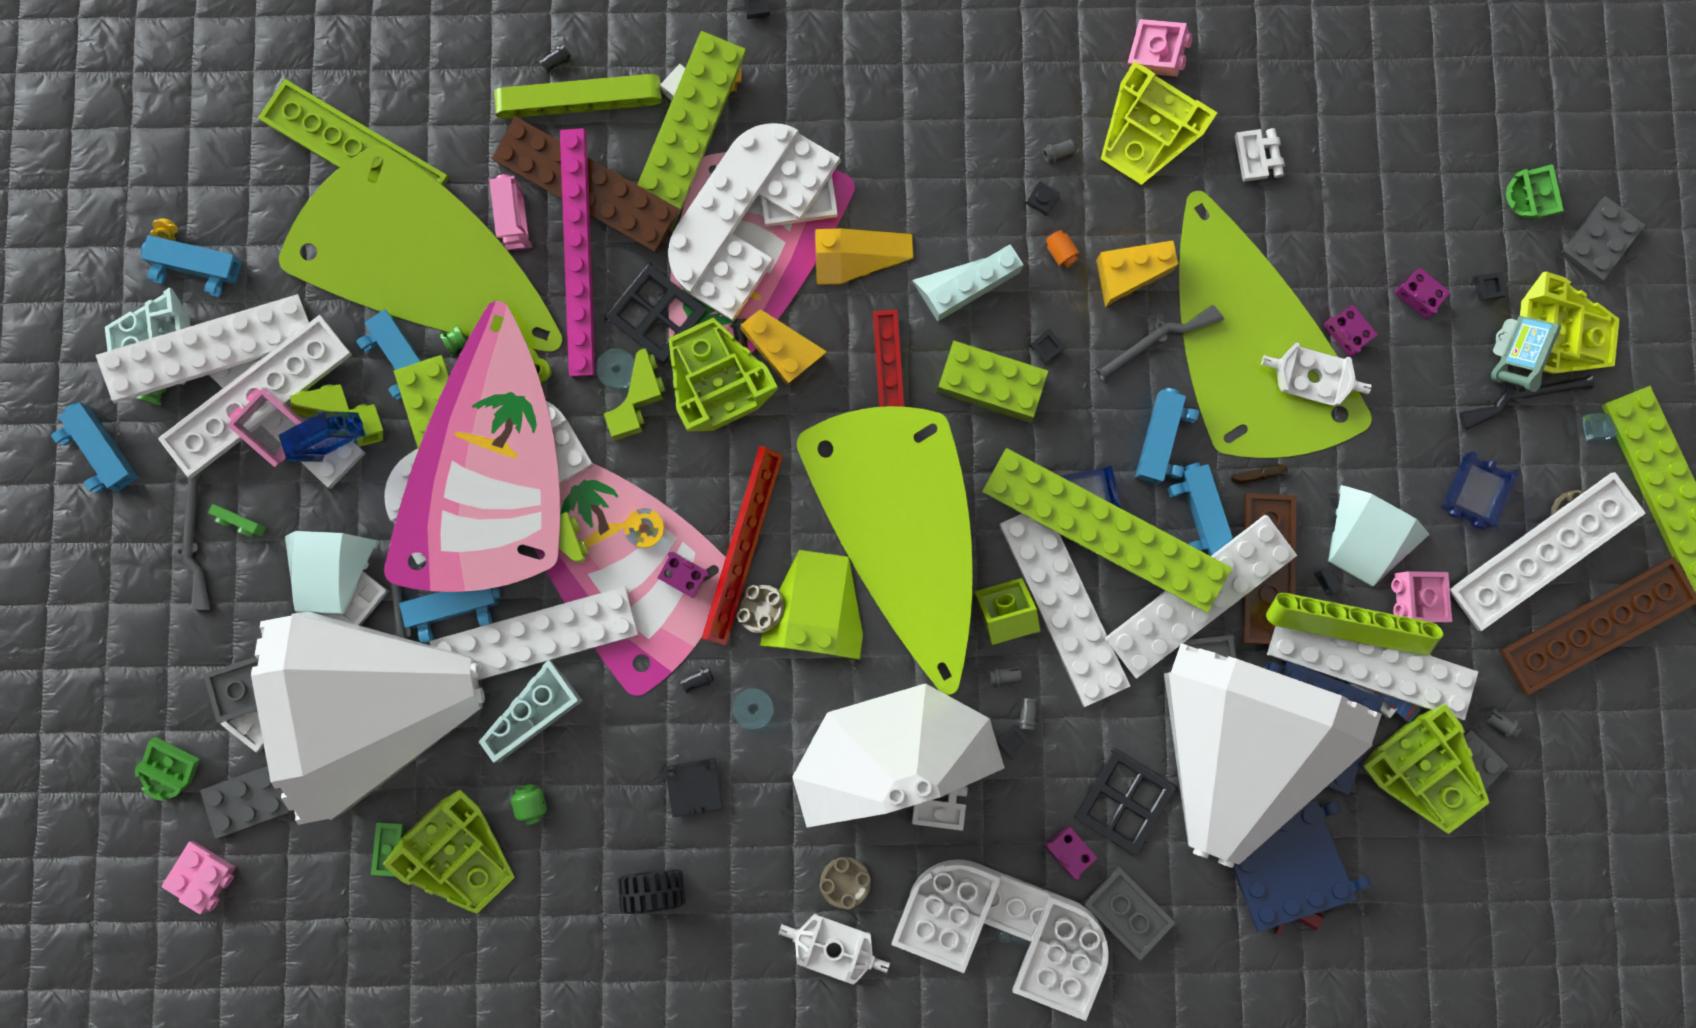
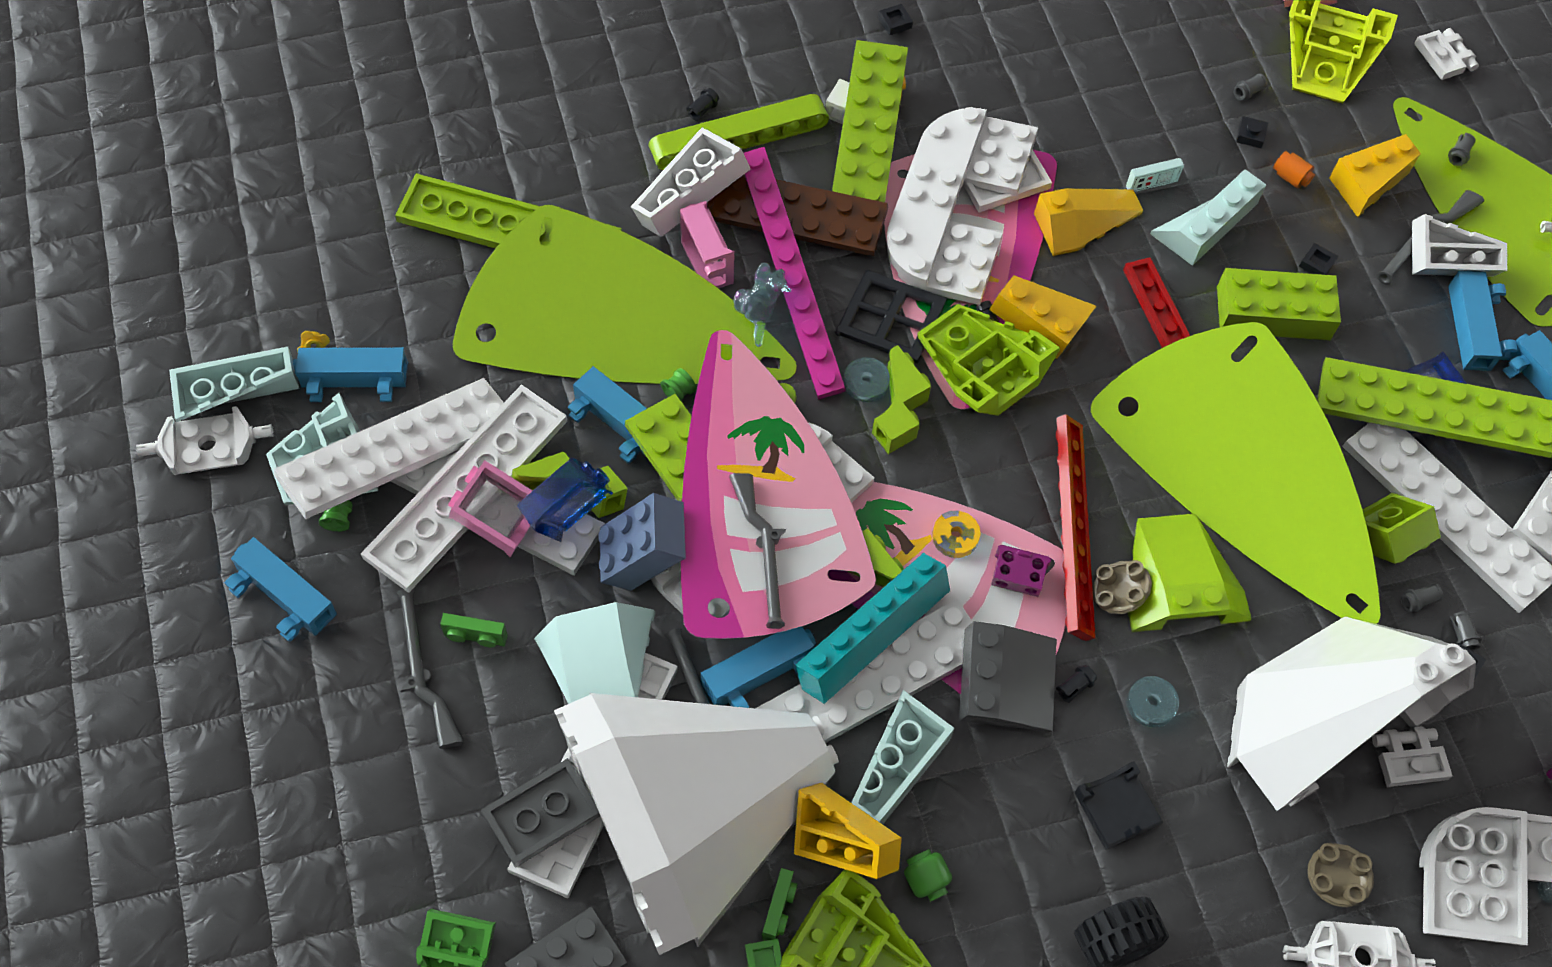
camera: 15 degrees left, 20 degrees down
(42, 300) = (182, 442): none -> white plate
(77, 254) = (231, 380): none -> light aqua wedge
(377, 484) = (642, 542): none -> sand blue brick
(405, 808) = (783, 893): none -> bright green plate
(464, 765) = (843, 835): none -> yellow wedge
(469, 460) = (744, 489): none -> dark grey piece
(508, 149) = (692, 177): none -> white wedge
(541, 279) = (759, 302): none -> clear light blue animal
(544, 599) = (873, 628): none -> teal brick
(640, 666) = (1007, 677): none -> dark grey slope
(931, 226) = (1155, 175): none -> light aqua tile
(1167, 370) = (1447, 249): none -> white wedge
(1226, 262) = (1461, 152): none -> dark grey pin

